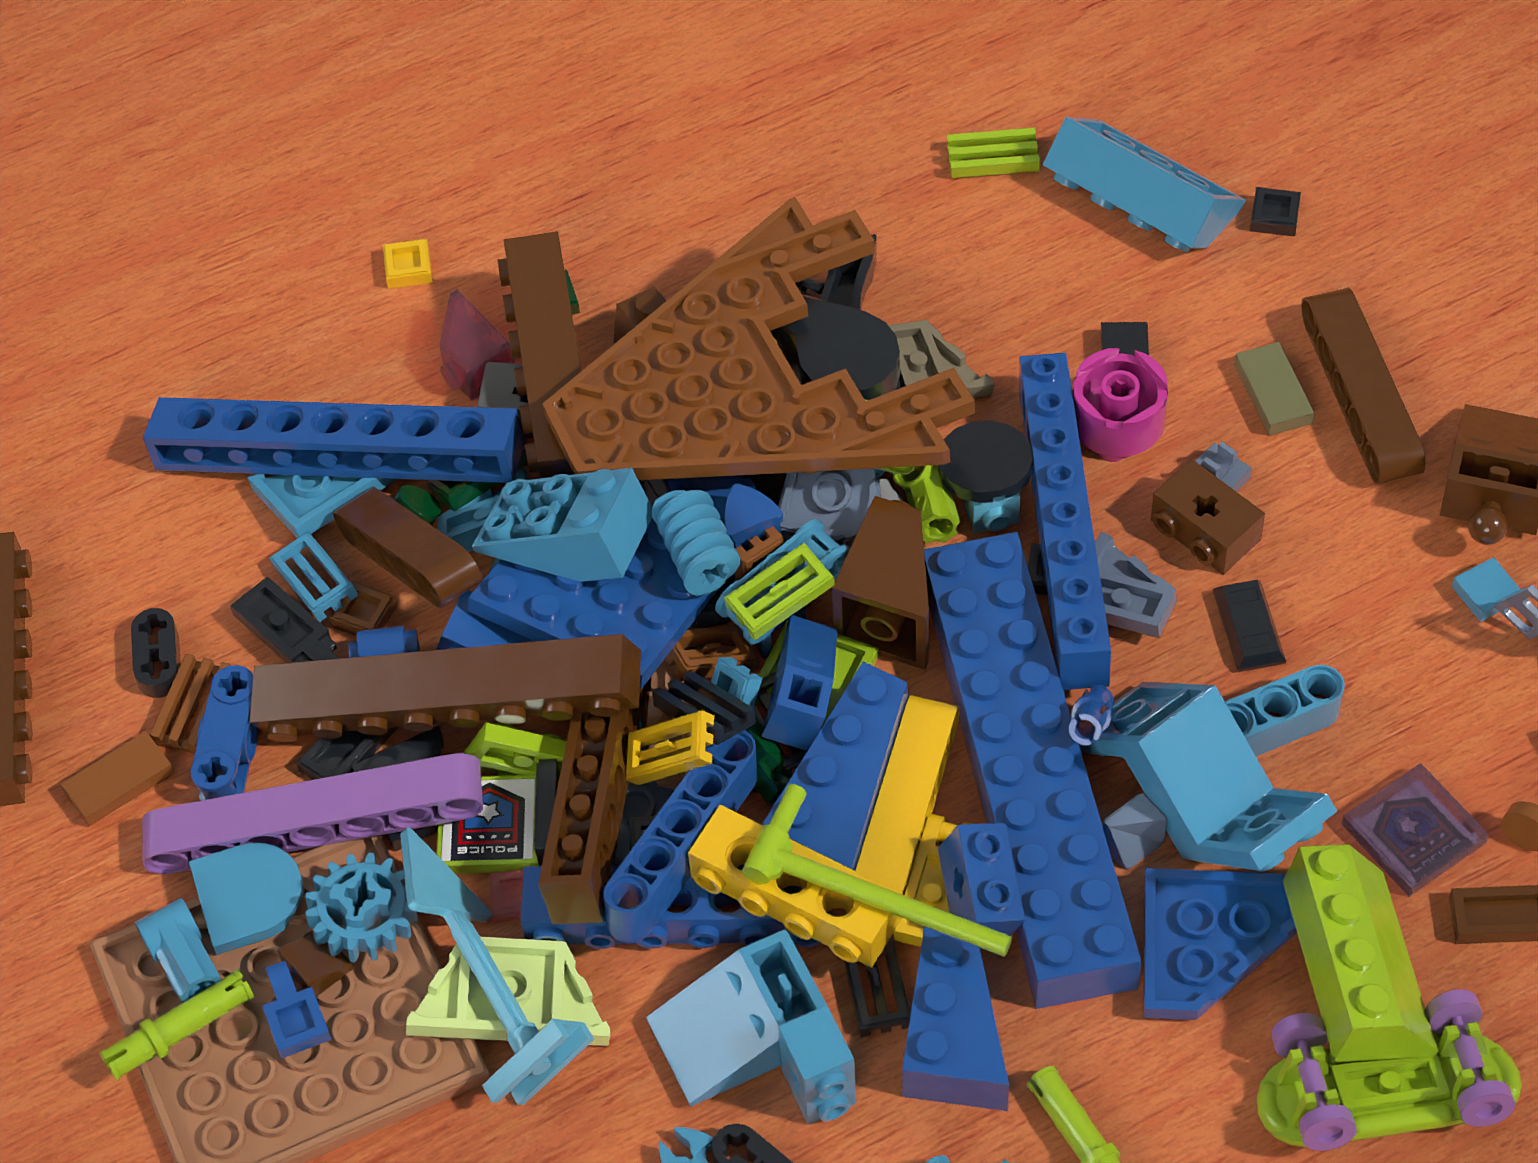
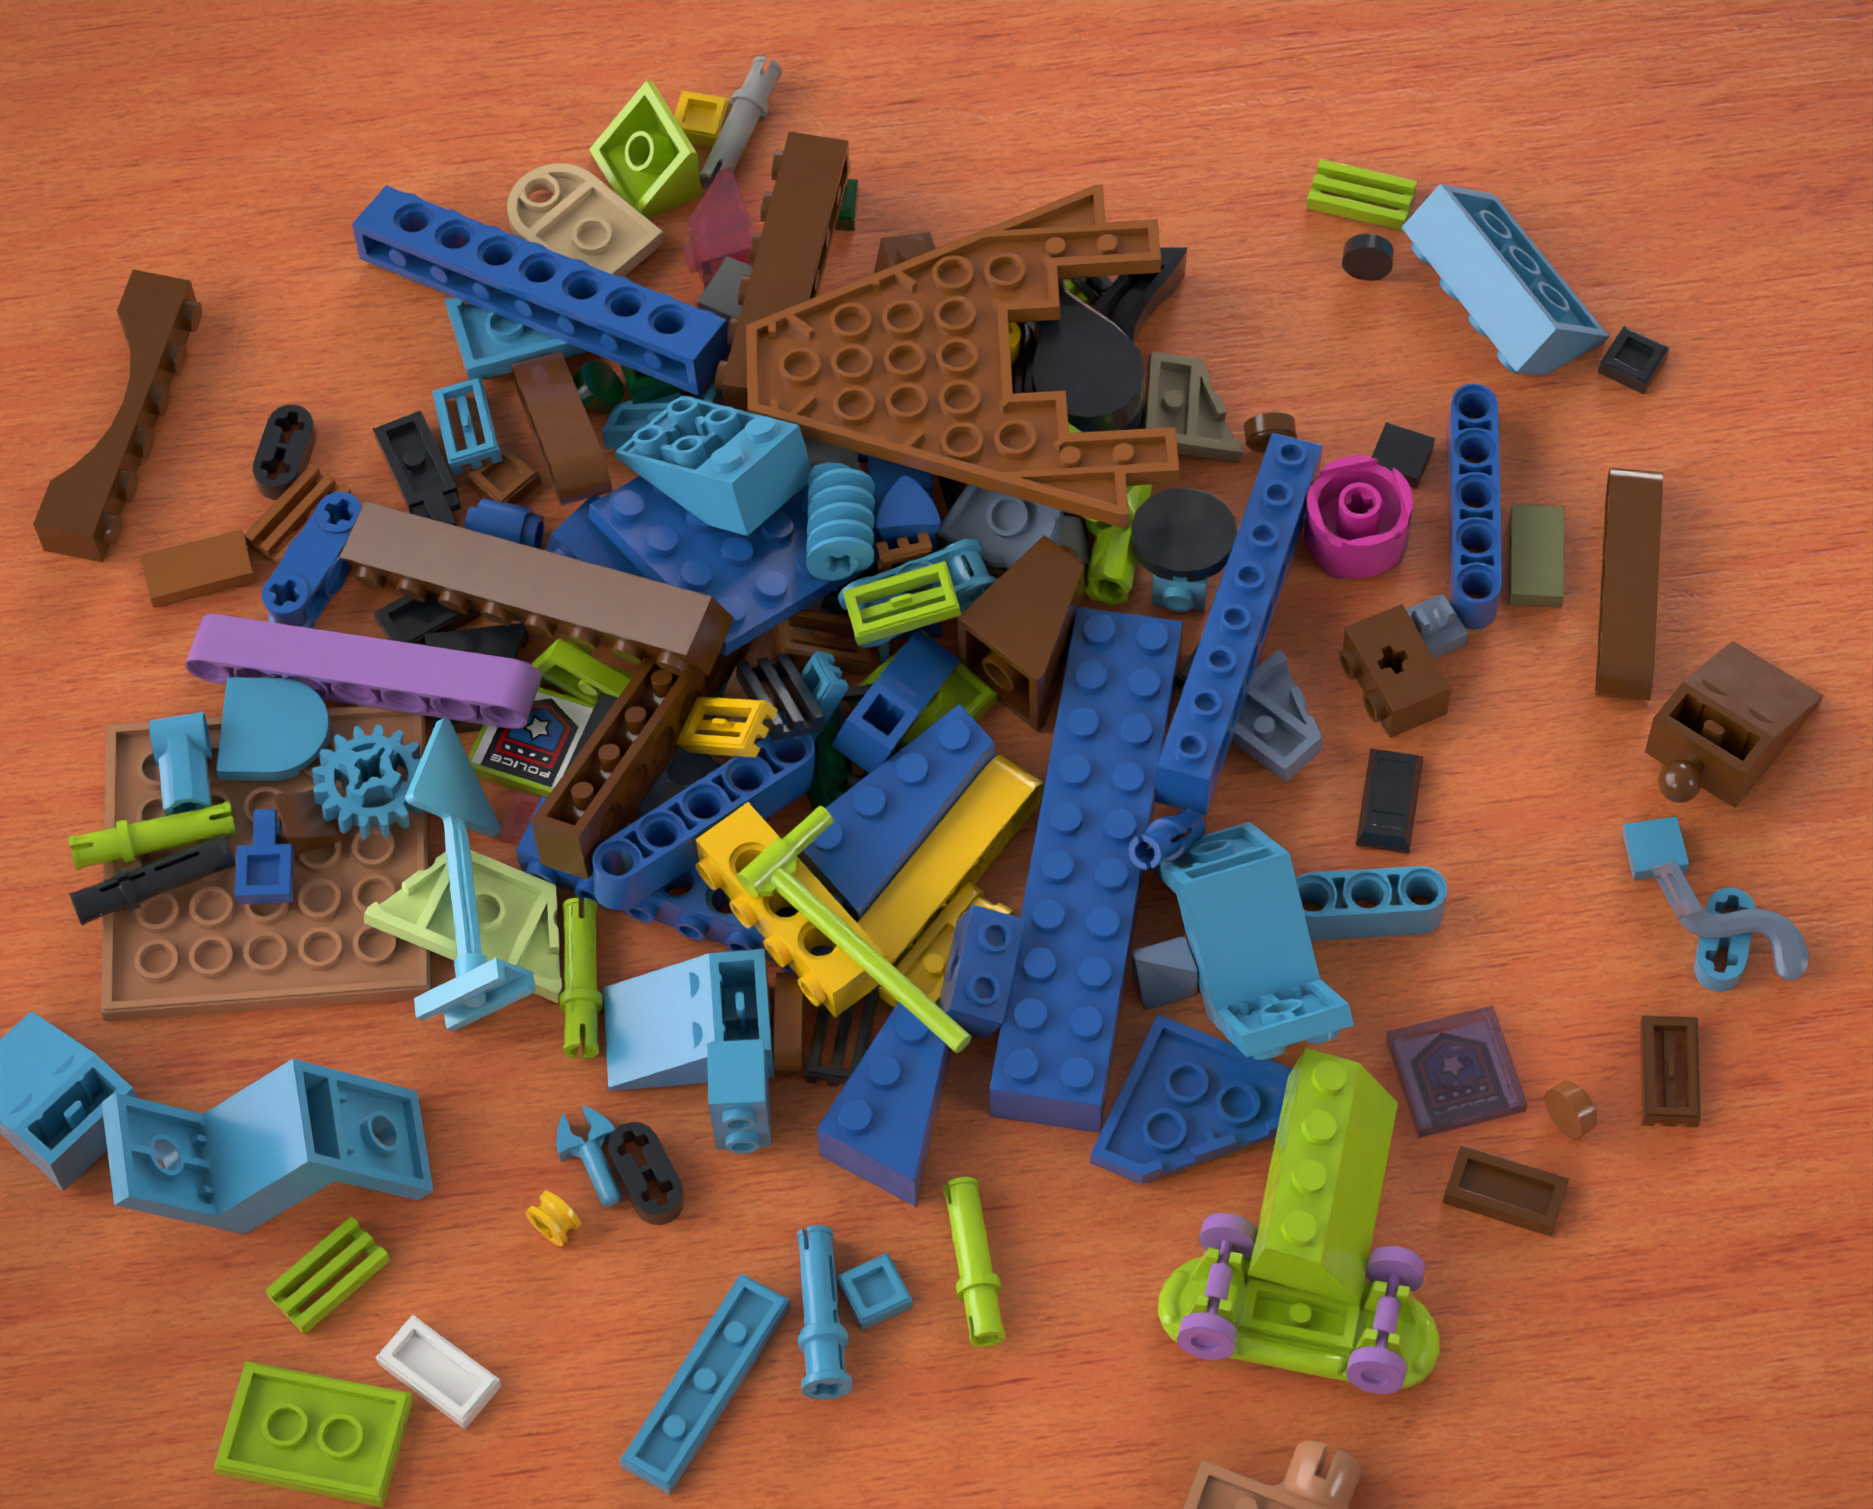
camera: 20 degrees right, 5 degrees up
(175, 1079) = (161, 876): none -> black pin
(341, 371) = (581, 219): none -> tan plate
(379, 304) = (648, 155): none -> lime slope
(446, 240) = (747, 108): none -> light grey pin
(630, 1033) = (580, 997): none -> lime pin
(827, 979) = (789, 1023): none -> dark orange beam
(1004, 360) = (1260, 428): none -> reddish brown tile
(1024, 198) = (1368, 257): none -> black tile
(1206, 363) = (1479, 485): none -> blue beam

